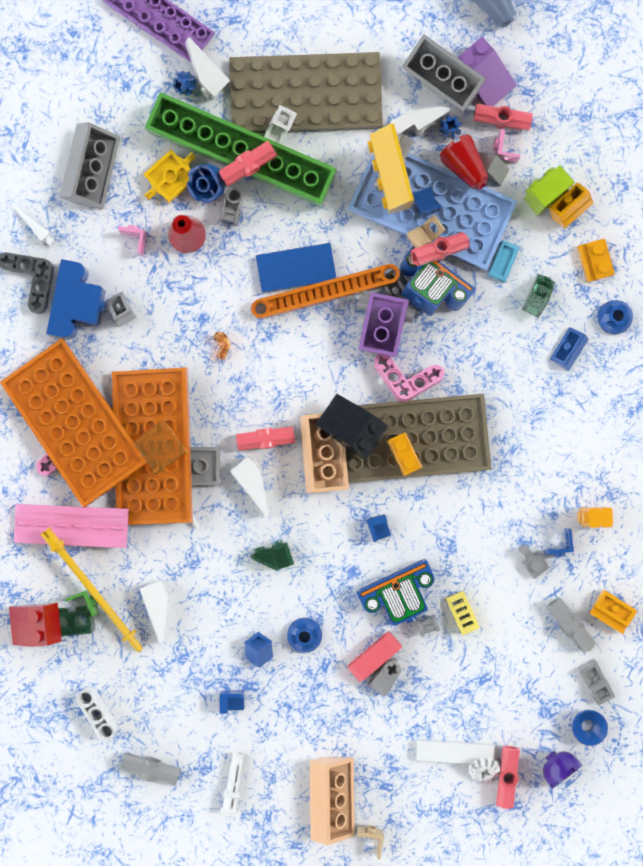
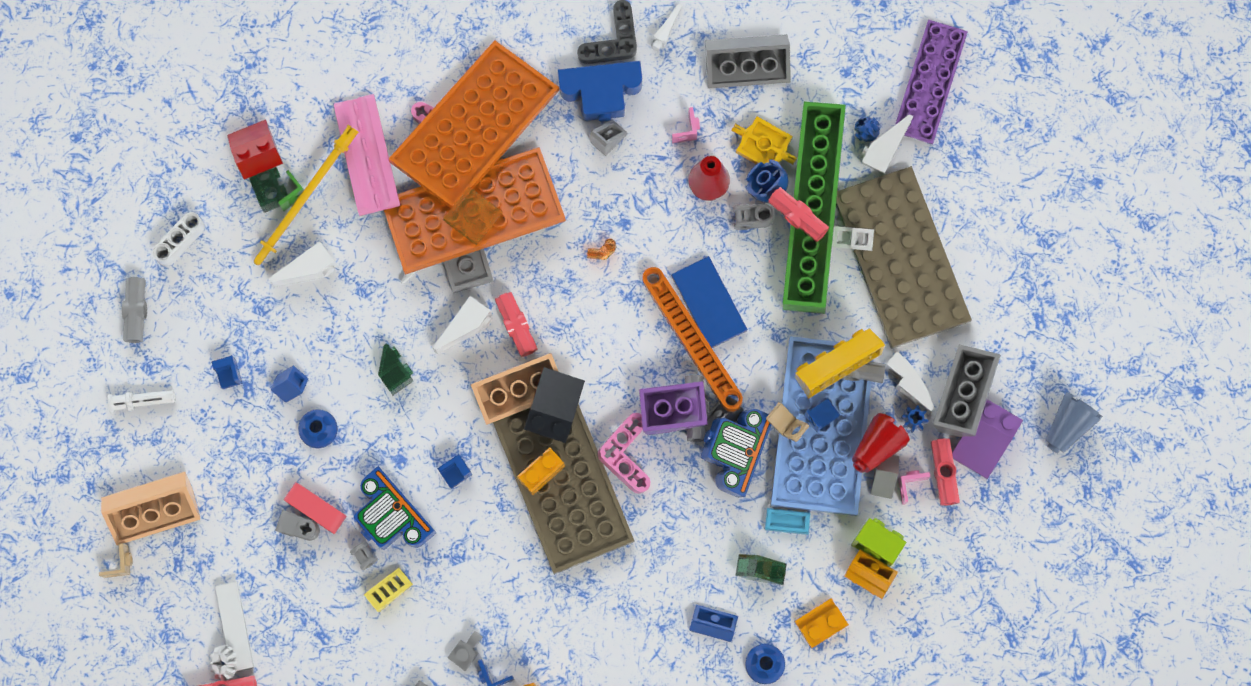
camera: 80 degrees right, 10 degrees down
(449, 245) = (783, 453): coral piece -> none

